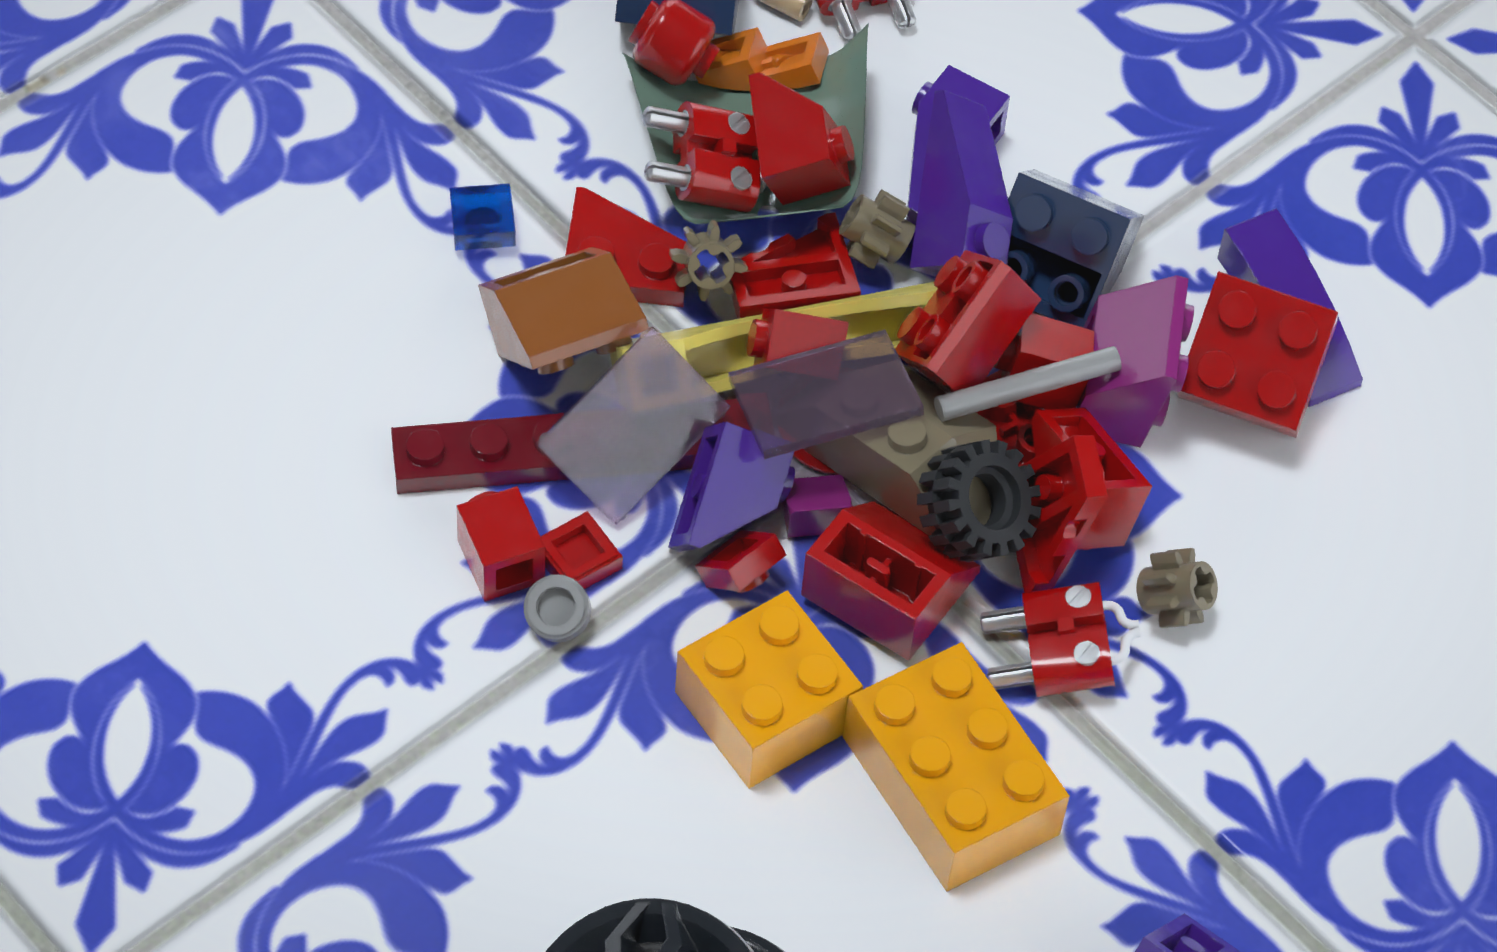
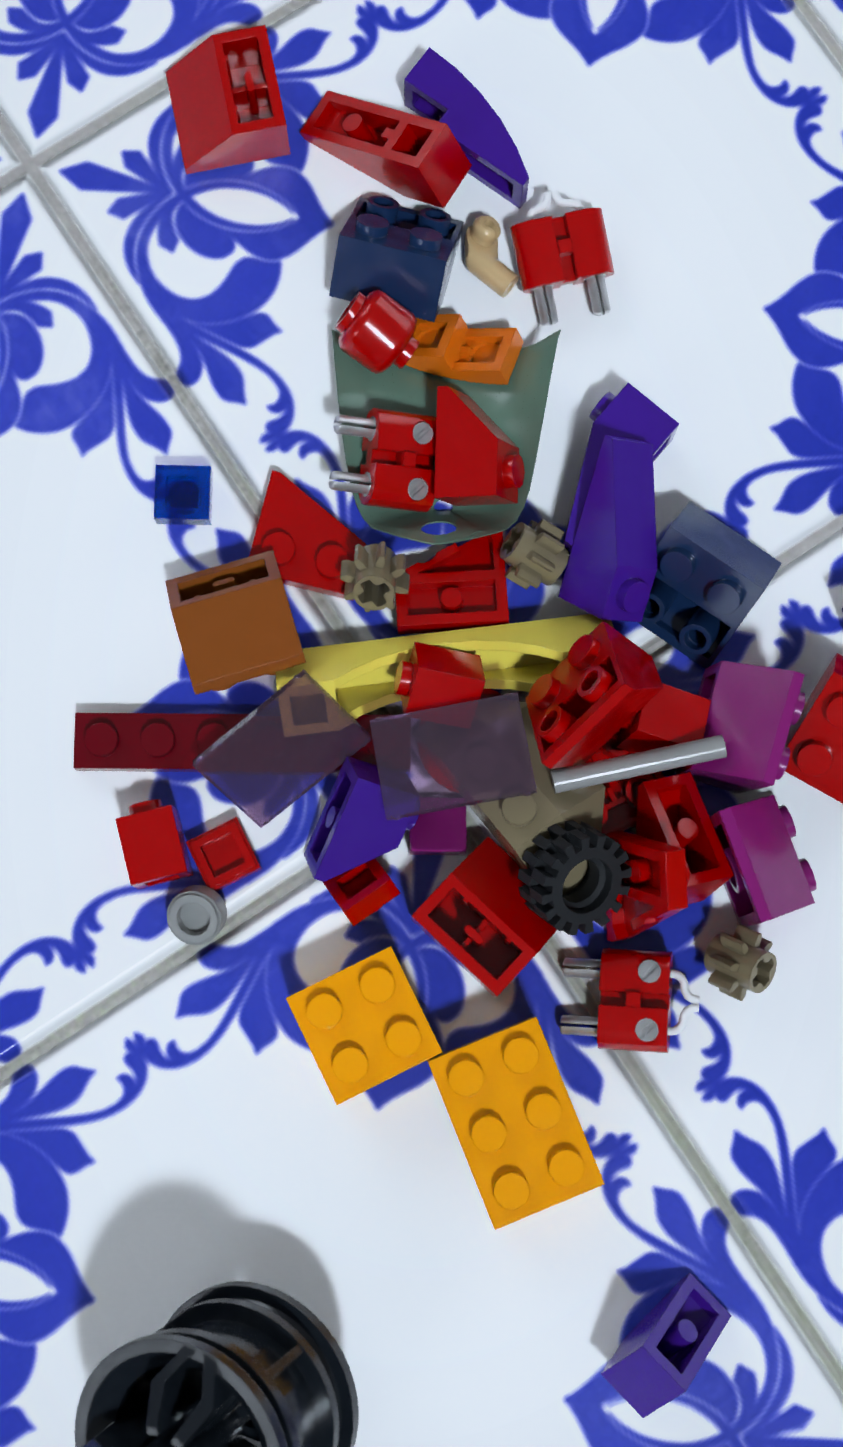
camera: 10 degrees right, 25 degrees up
(1188, 495) = (763, 860): none -> magenta slope

